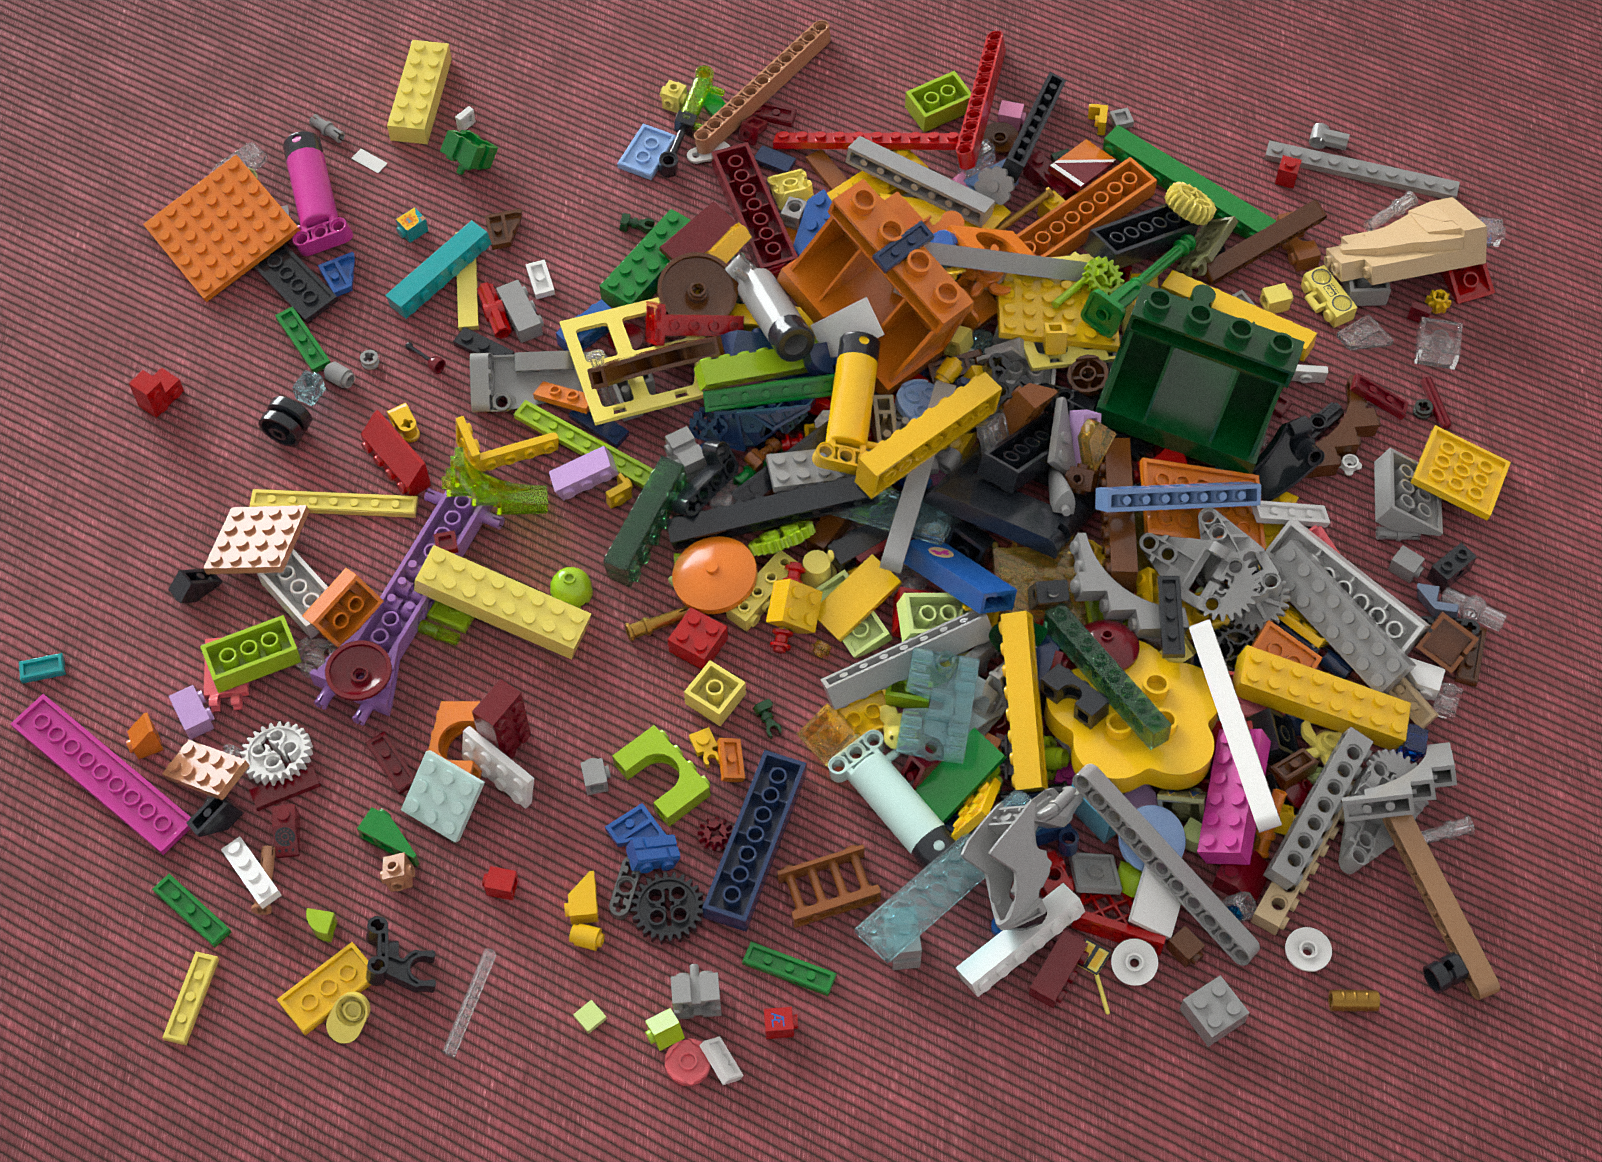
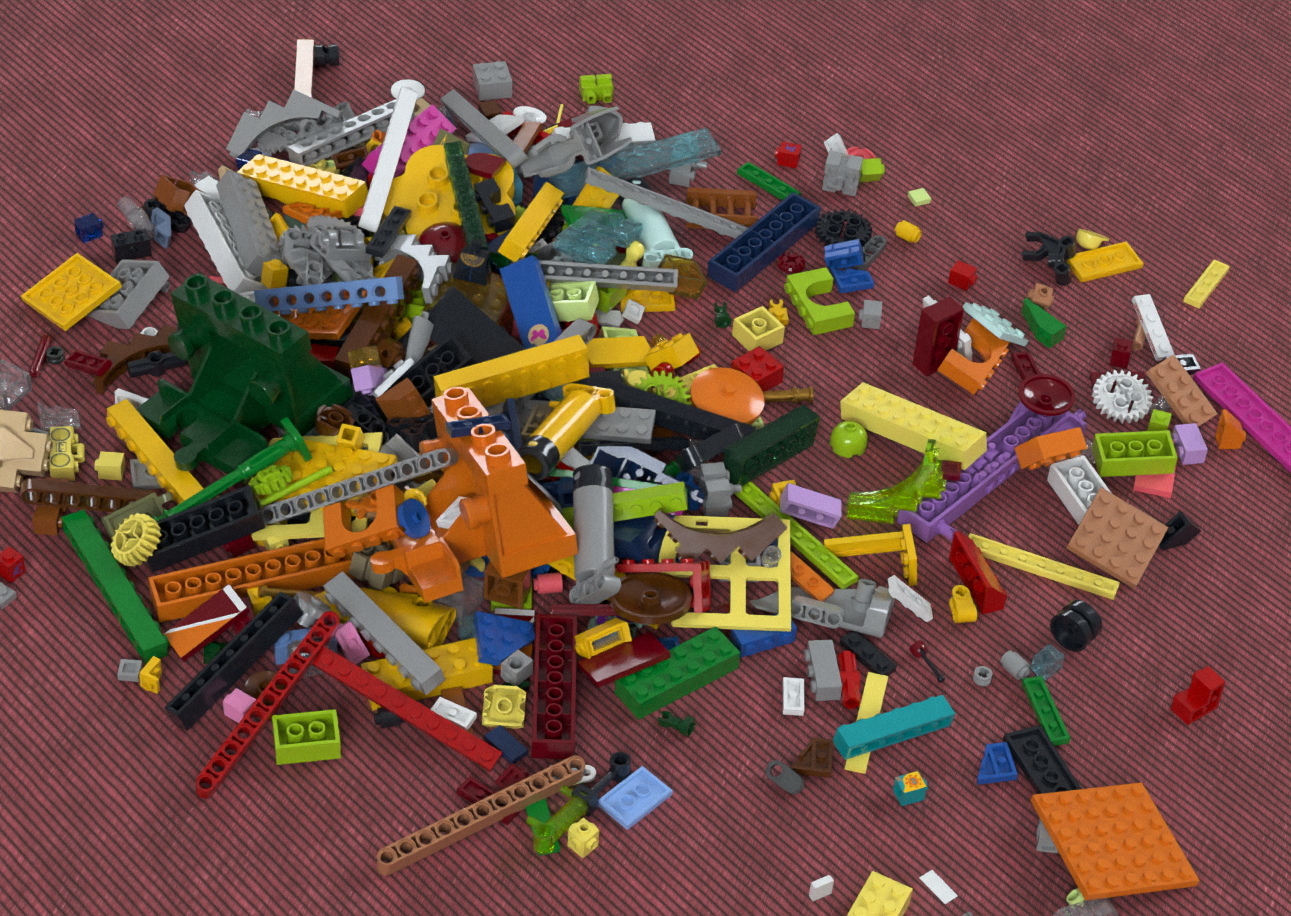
camera: 165 degrees left, 15 degrees down
(191, 910) = (1201, 330): green tile -> none
(229, 724) = (1159, 420): none -> lime brick
(313, 196) = (1009, 842): dark pink piece -> none
(322, 923) = (1103, 290): lime brick -> none
(454, 393) = (910, 598): none -> white plate
(468, 150) = (829, 834): green brick -> none
(469, 1002) = (1002, 226): clear axle -> none
(524, 201) = (788, 779): none -> dark grey piece
(582, 901) = (904, 249): yellow slope -> none
(730, 760) = (762, 294): orange plate -> none
(828, 158) = (454, 713): none -> white plate
(886, 814) = (663, 203): none -> light grey plate
(902, 400) = (514, 433): none -> dark blue tile
(1077, 1055) = (596, 91): none -> lime hips
(1113, 890) = (527, 135): none -> tile
(1116, 745) = (484, 164): none -> dark red tile
(1267, 541) = (274, 274): none -> yellow brick
(1354, 1000) = (396, 62): pearl gold axle -> none
(1406, 564) = (165, 257): light grey brick -> none
(1514, 578) = (88, 227): none -> clear blue brick

